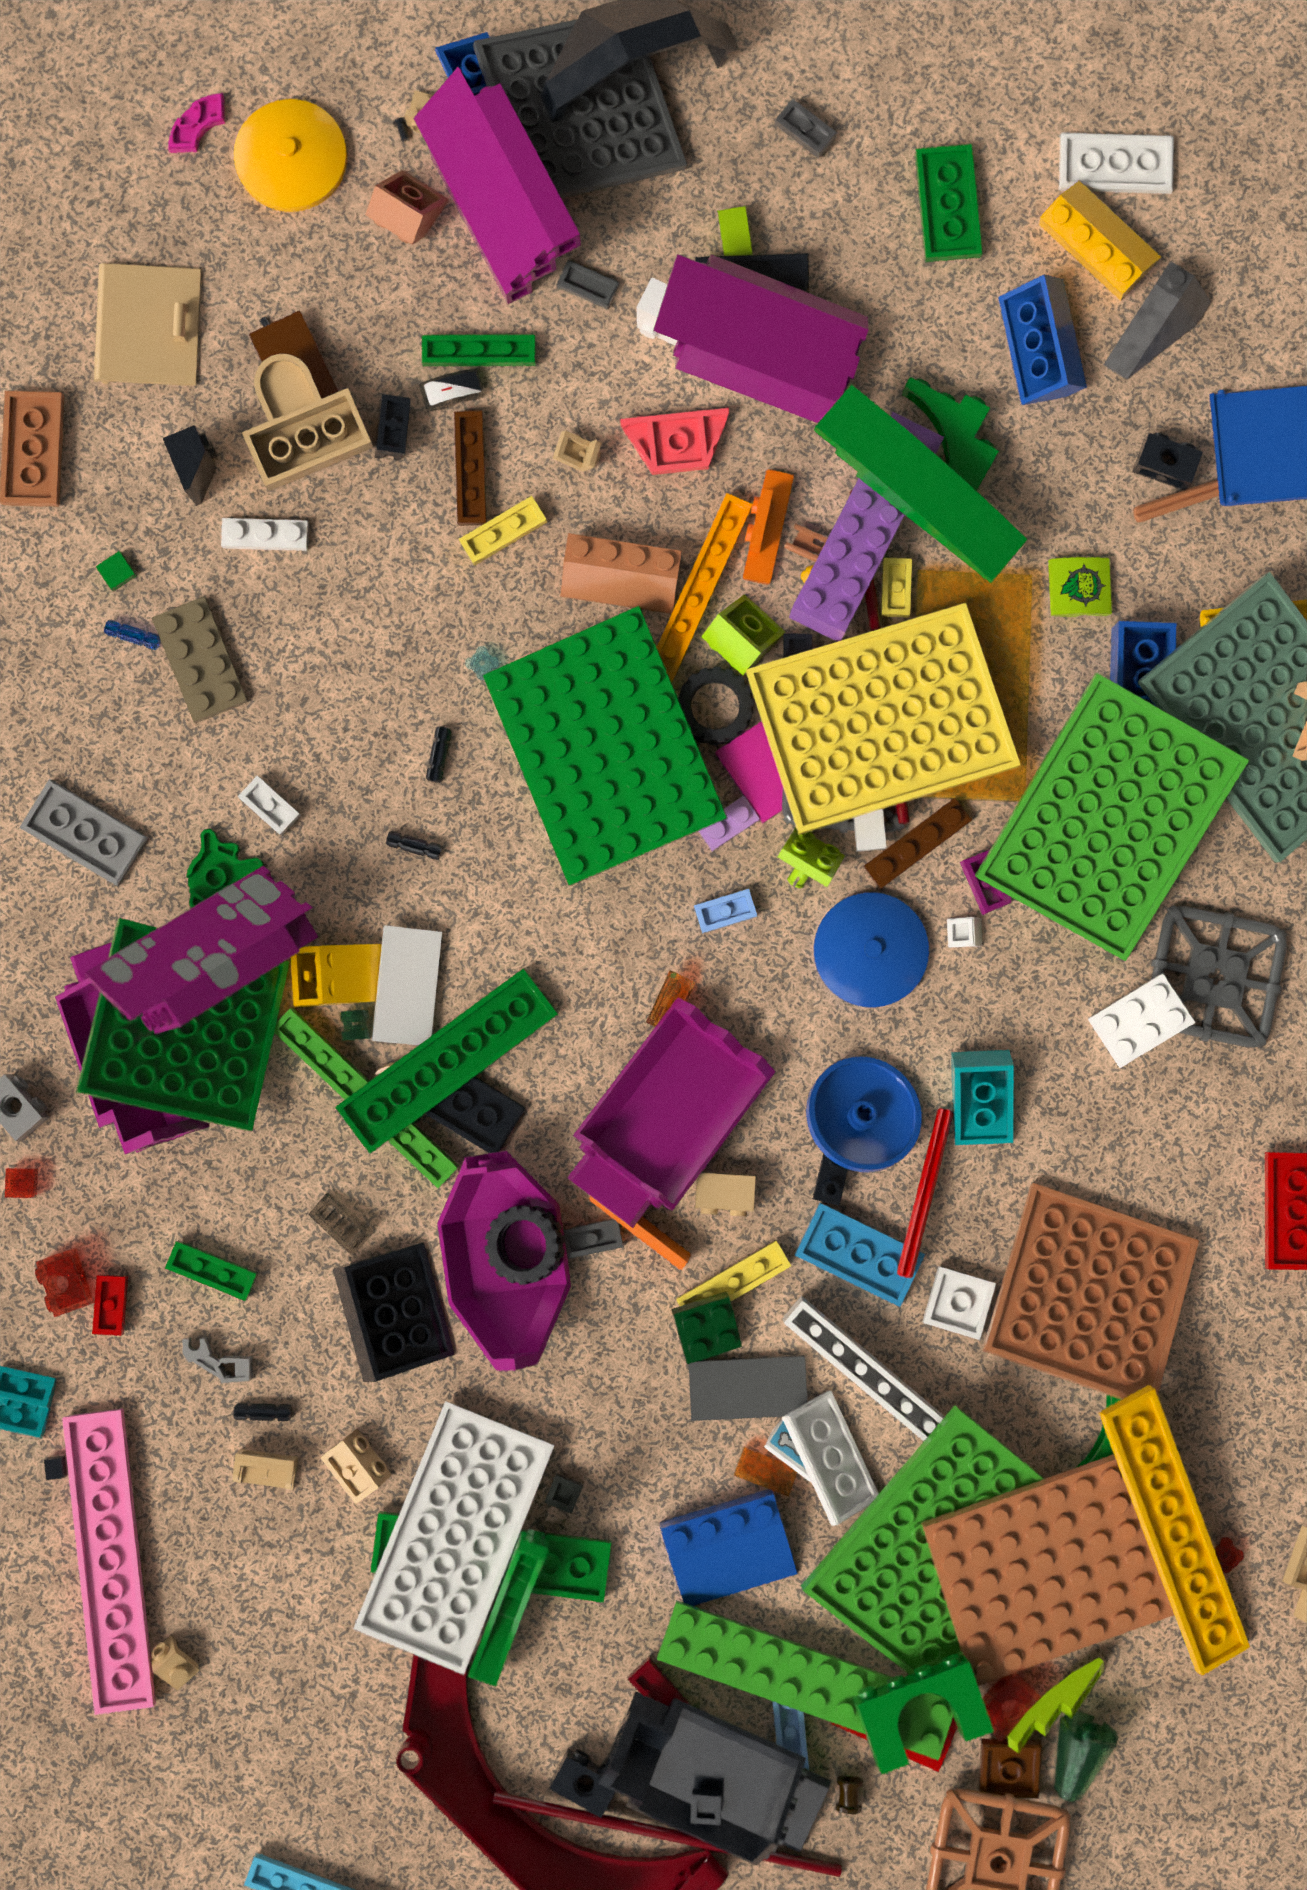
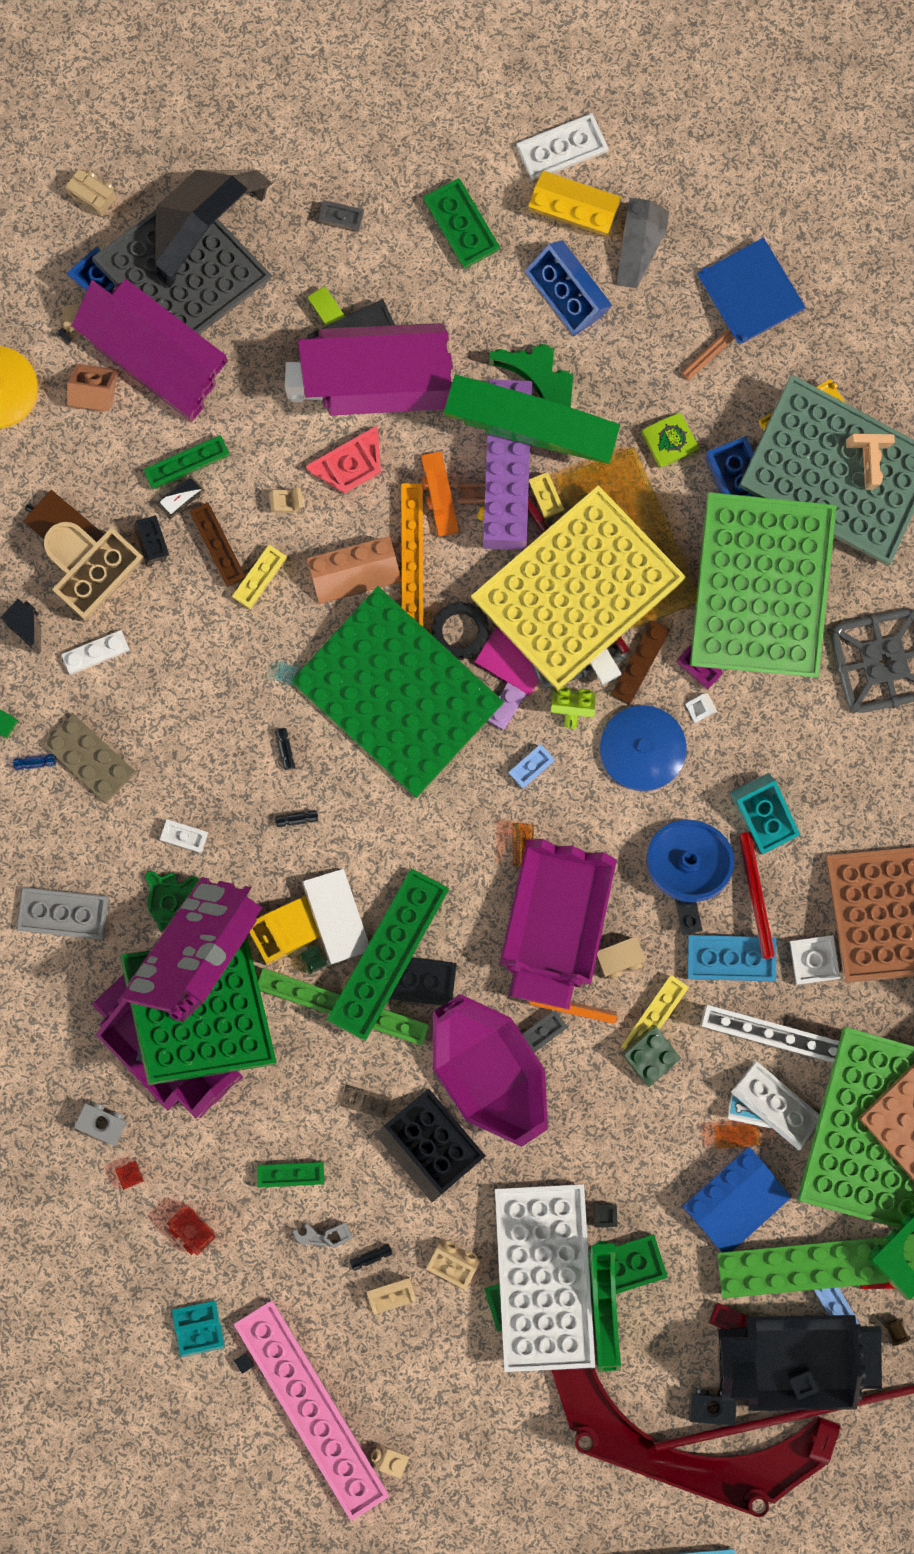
camera: 25 degrees left, 5 degrees down
(110, 1305) = (230, 1231): red plate -> none
(496, 1245) = (478, 1061): black tyre -> none
(587, 284) = (240, 385): dark grey tile -> none
(742, 634) = (456, 573): lime slope -> none
(747, 1387) = (697, 1085): dark grey tile -> none
(796, 644) = (495, 564): black plate -> none
(1141, 1020) = (847, 712): white plate -> none
(1151, 464) = (681, 338): black brick -> none

